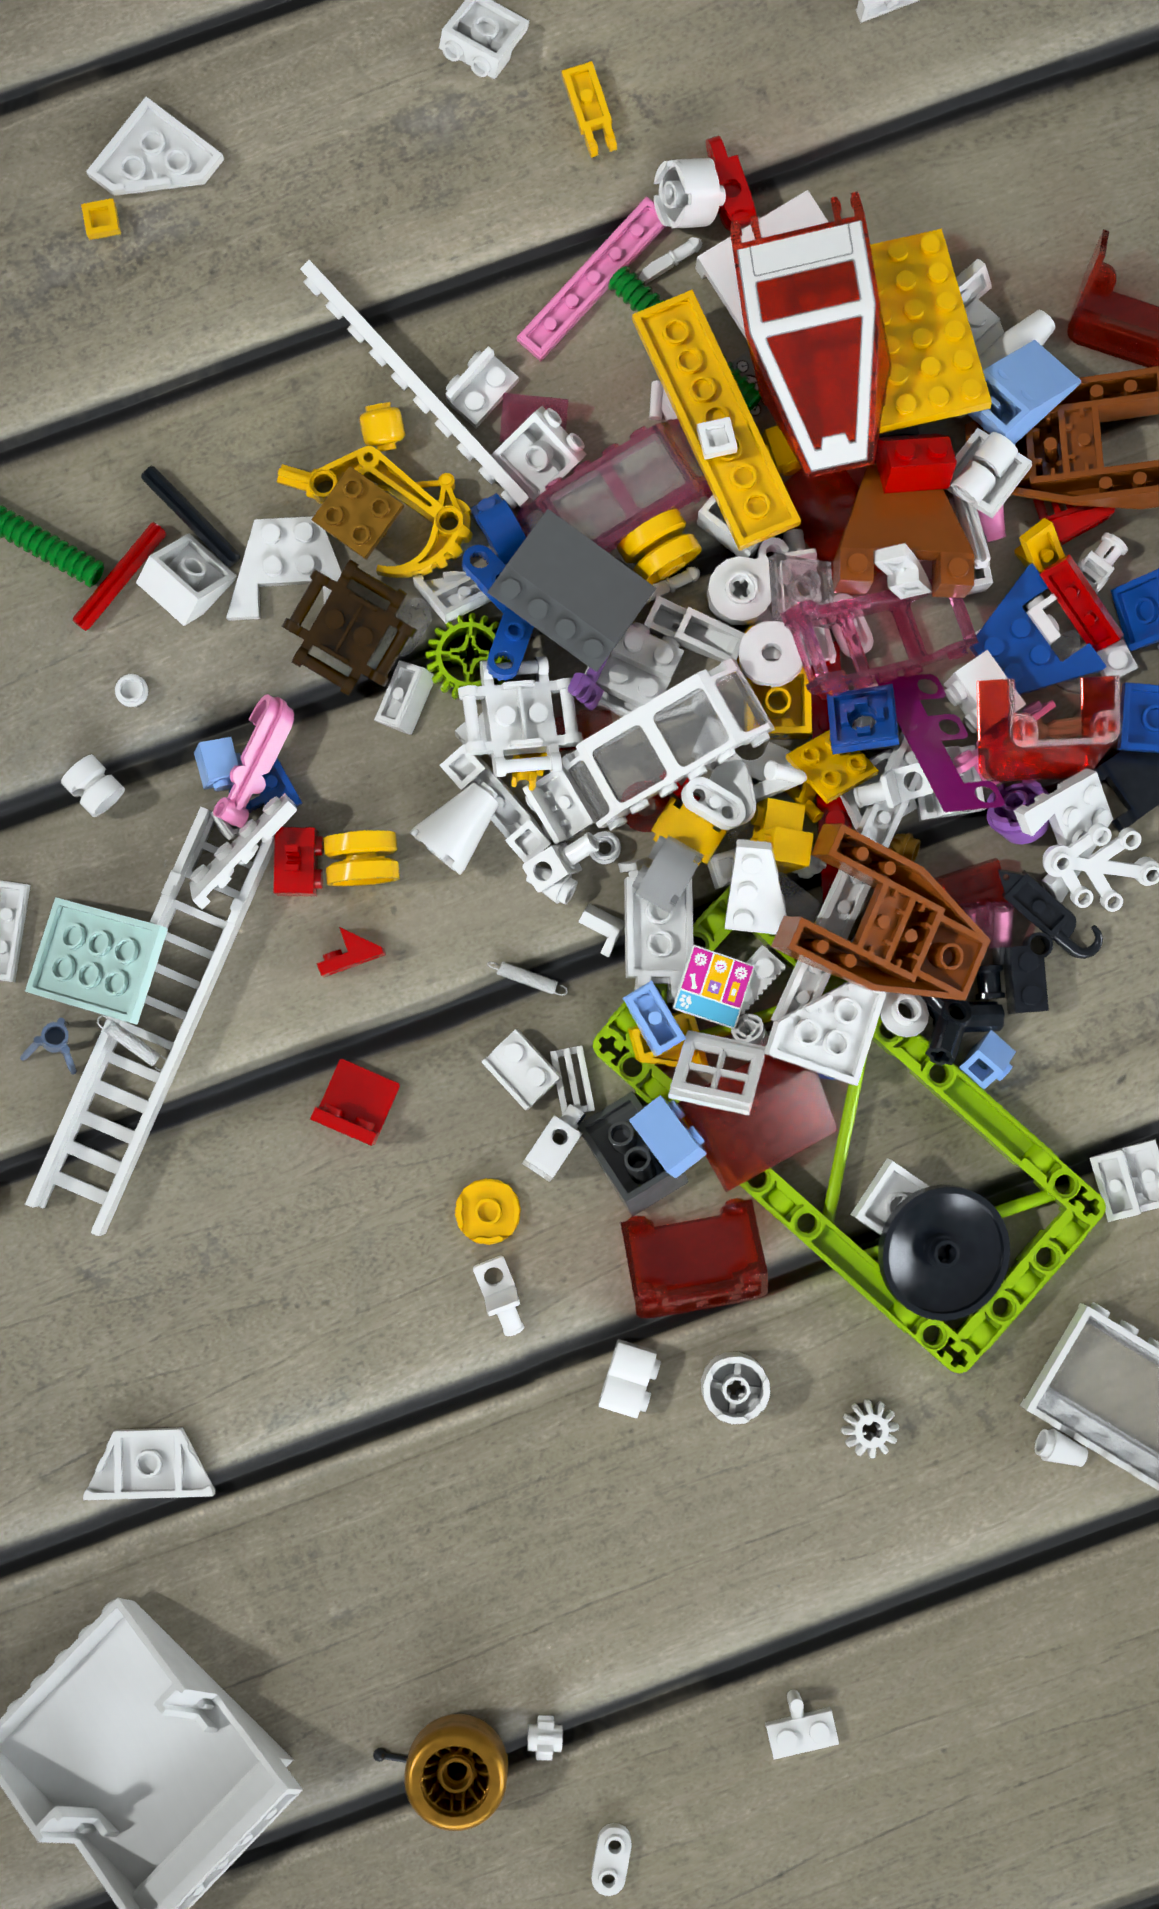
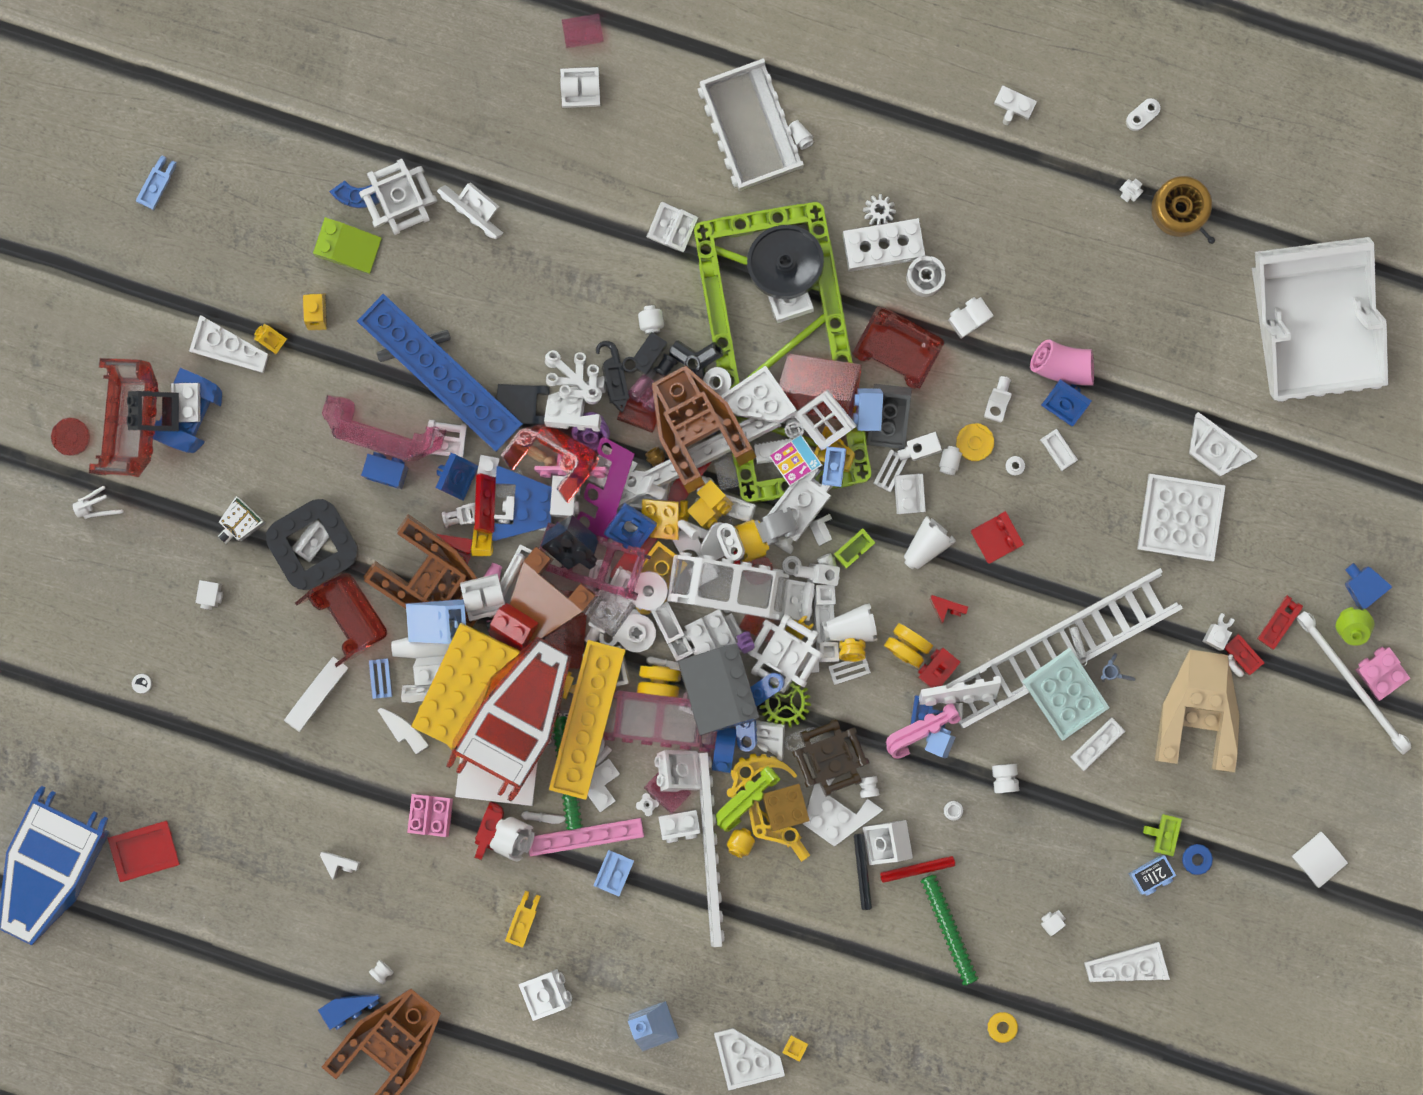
camera: 140 degrees left, 0 degrees up
(124, 1330) = (1181, 517): none -> white plate
(269, 632) = (869, 787): none -> white wheel
(314, 92) = (652, 1026): none -> light blue slope
(365, 1291) = (1059, 449): none -> white tile
(404, 1364) = (1066, 402): none -> blue tile
(405, 697) = (829, 708): white slope -> none
(417, 1216) = (1009, 468): none -> white plate
(424, 457) = (729, 815): none -> lime piece
(432, 745) = (833, 675): none -> white tile
(433, 793) = (852, 650): none -> yellow wheel
(443, 1020) = (927, 543): none -> white cone
(450, 1415) = (1064, 363): none -> bright pink brick
(501, 1158) = (950, 460): none -> white brick
(519, 259) = (613, 873): none -> light blue plate
(526, 977) = (874, 533): white piece -> none
(541, 921) = (849, 552): none -> lime piece
(552, 389) = (647, 799): none -> white plate
(628, 351) = (598, 792): none -> white plate
(717, 438) = (596, 707): white plate -> none
(755, 890) = (743, 487): white wing -> none
(819, 148) = (430, 815): none -> bright pink slope
(830, 1407) = (888, 233): none -> white brick
(903, 571) = (560, 579): white slope -> none
(925, 633) = (571, 543): none -> black hinge
(958, 225) = (402, 730): none -> white slope
(988, 1060) = (695, 331): light blue brick -> none
(1019, 247) = (380, 679): none -> light blue tile
(1059, 1028) = (651, 319): none -> white head
(1096, 181) = (315, 695): none -> white slope

